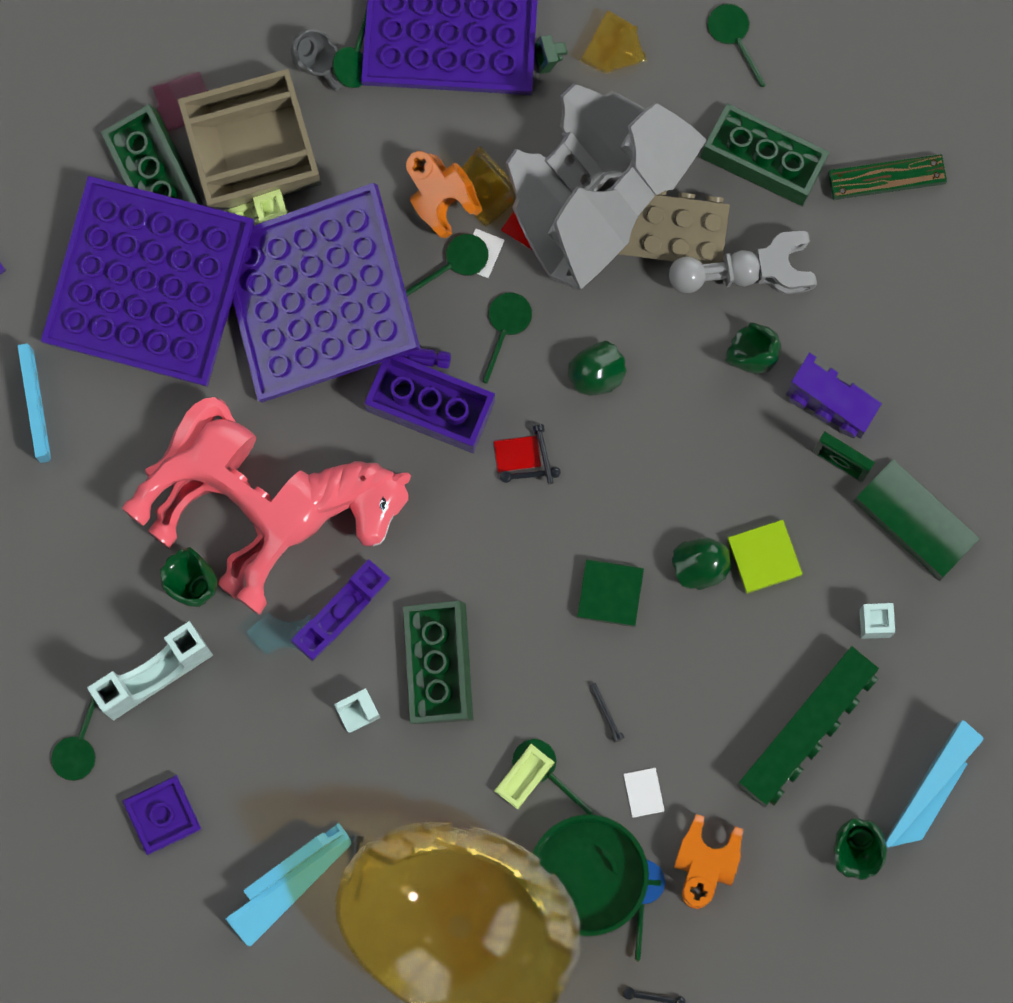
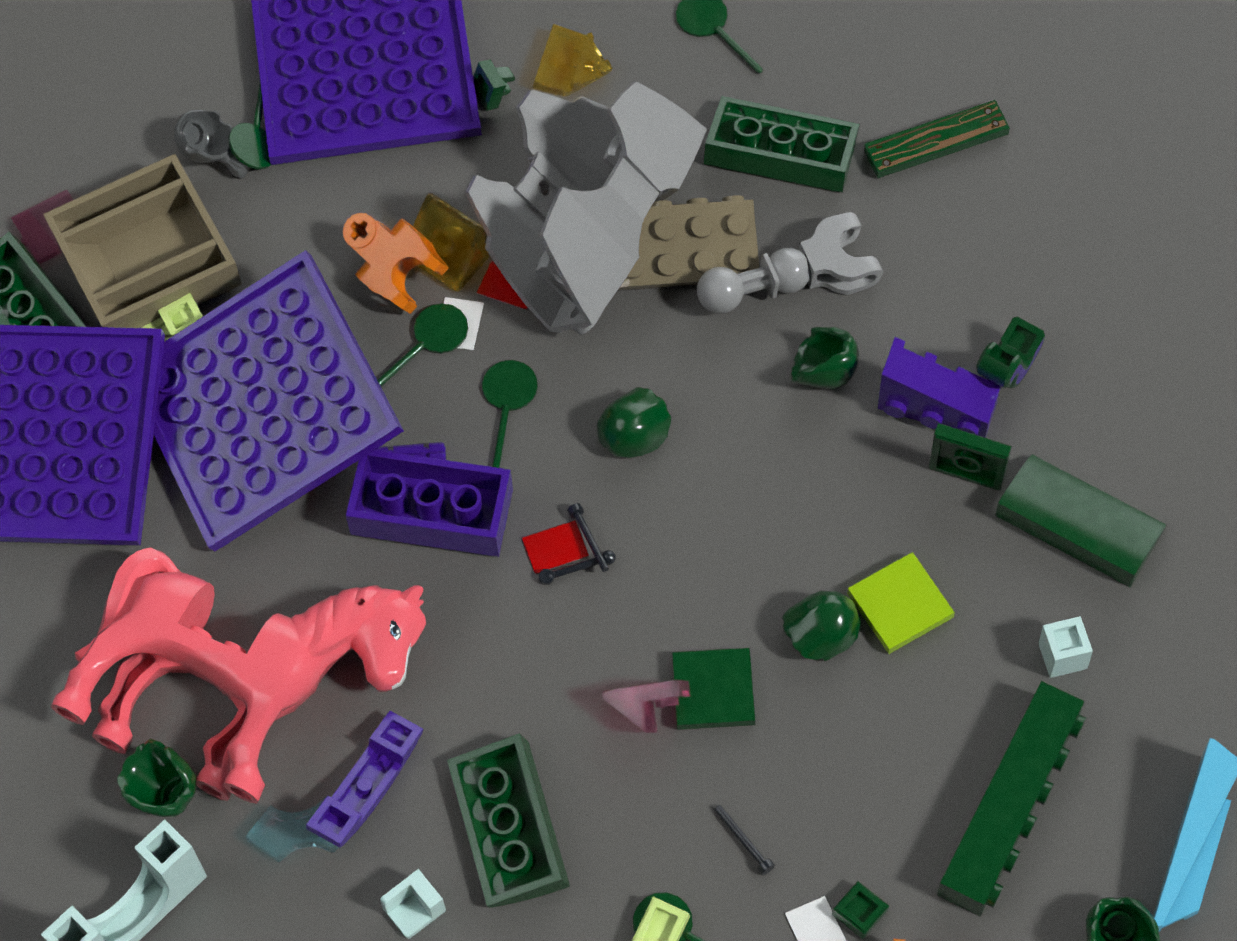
camera: 10 degrees left, 15 degrees down
(552, 593) = (638, 701): none -> clear pink slope
(678, 784) = (860, 909): none -> dark green tile
(897, 379) = (1013, 357): none -> dark green animal

